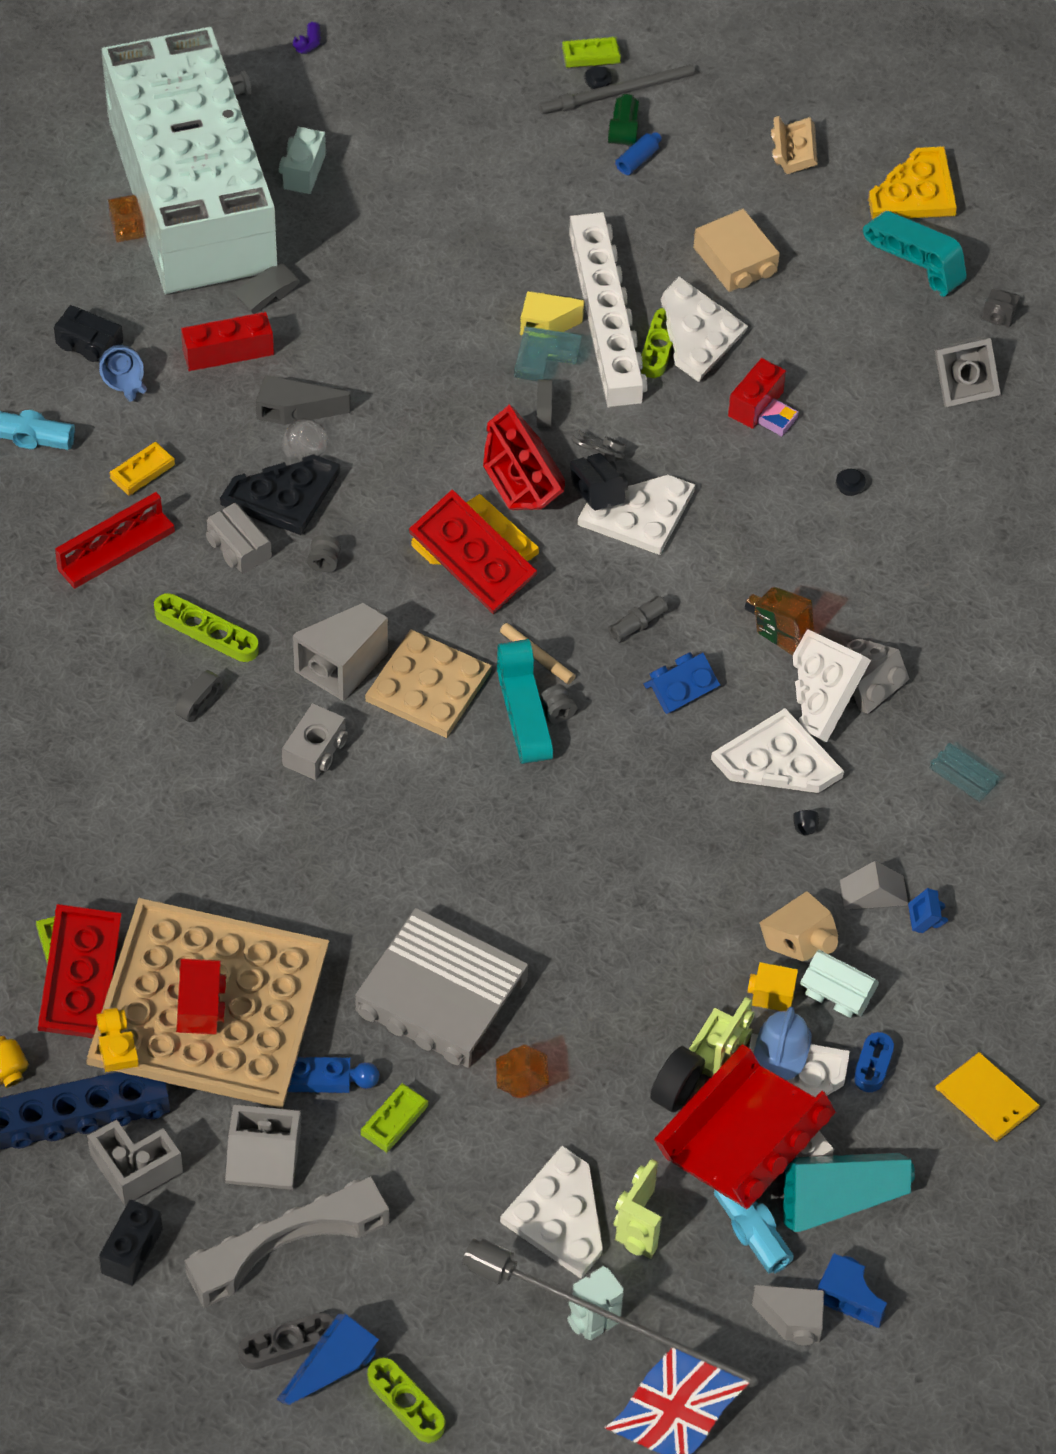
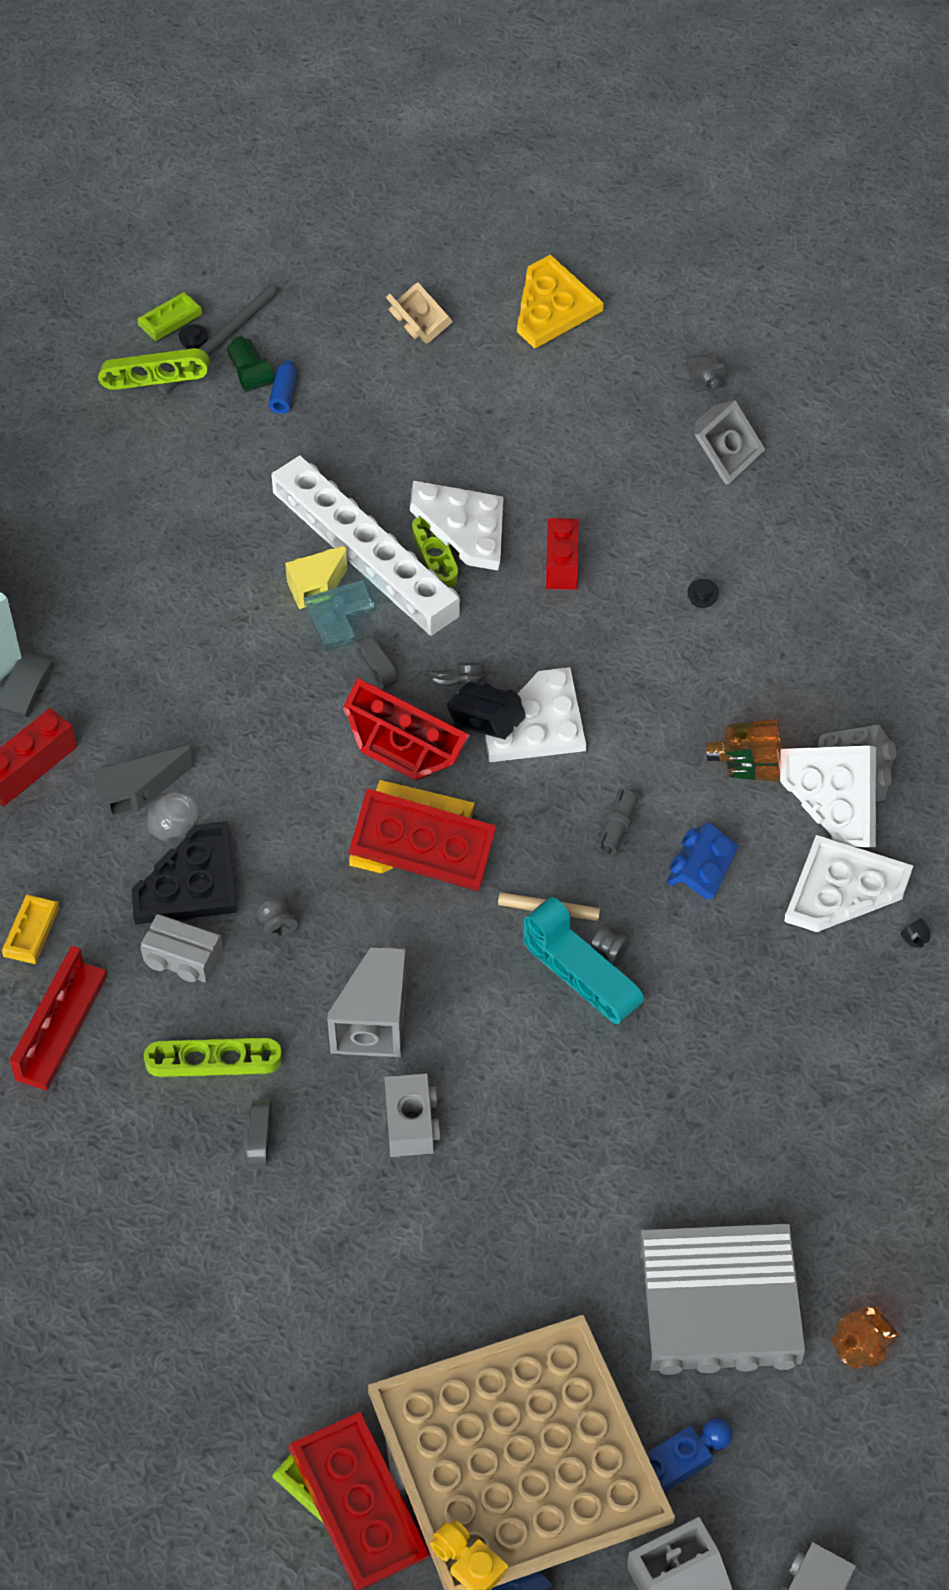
camera: 30 degrees left, 0 degrees up
(199, 996) = (516, 1456): red brick -> none
(394, 1117) = (777, 1462): lime plate -> none
(428, 683) = (470, 993): tan plate -> none
(569, 96) = (151, 364): none -> lime beam
(736, 250) = (441, 433): tan brick -> none
(778, 417) = (593, 567): tile -> none
(921, 246) = (601, 349): teal beam -> none

